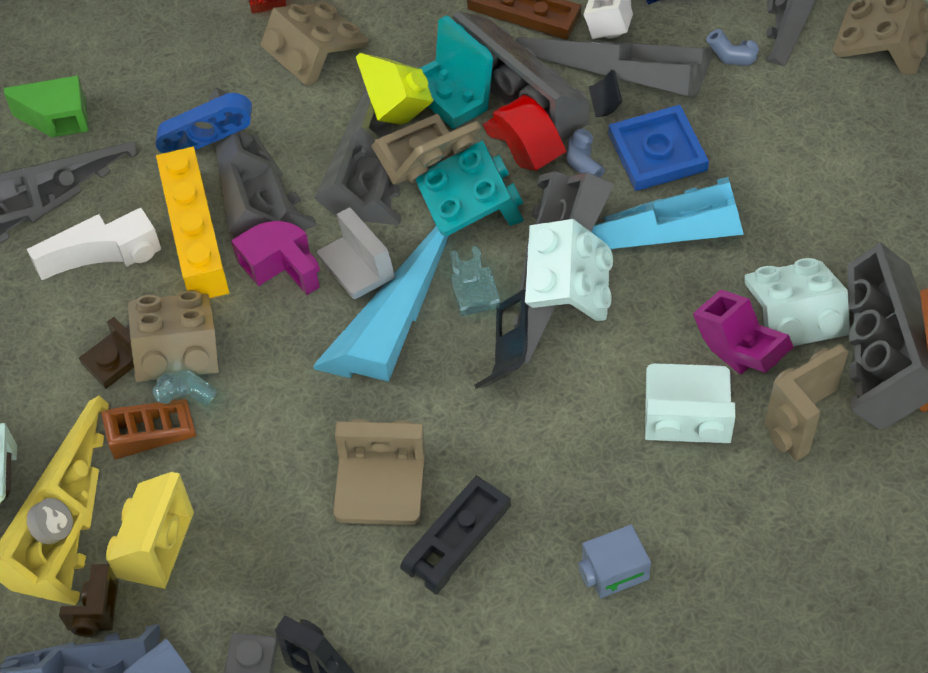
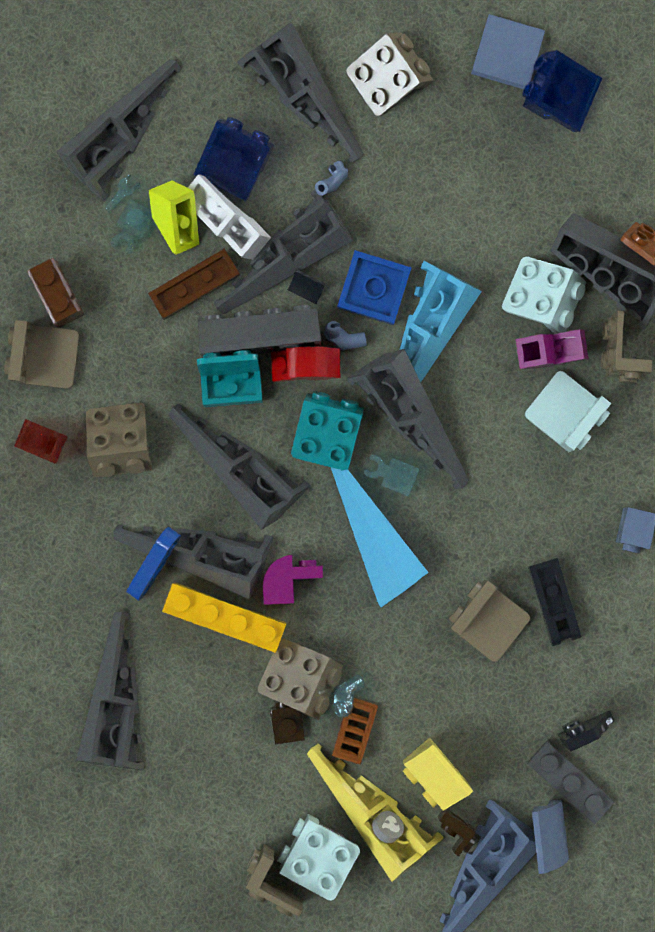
camera: 60 degrees left, 30 degrees up
(50, 106) = (55, 647): bright green slope -> none
(92, 242) = (207, 662): white slope -> none
(358, 258) = (324, 534): light grey panel -> none
(394, 88) = (207, 420): neon yellow slope -> none
(420, 146) = (277, 437): dark tan bracket -> none
(512, 346) = (458, 487): black piece -> none
(568, 268) = (439, 420): light aqua bracket -> none

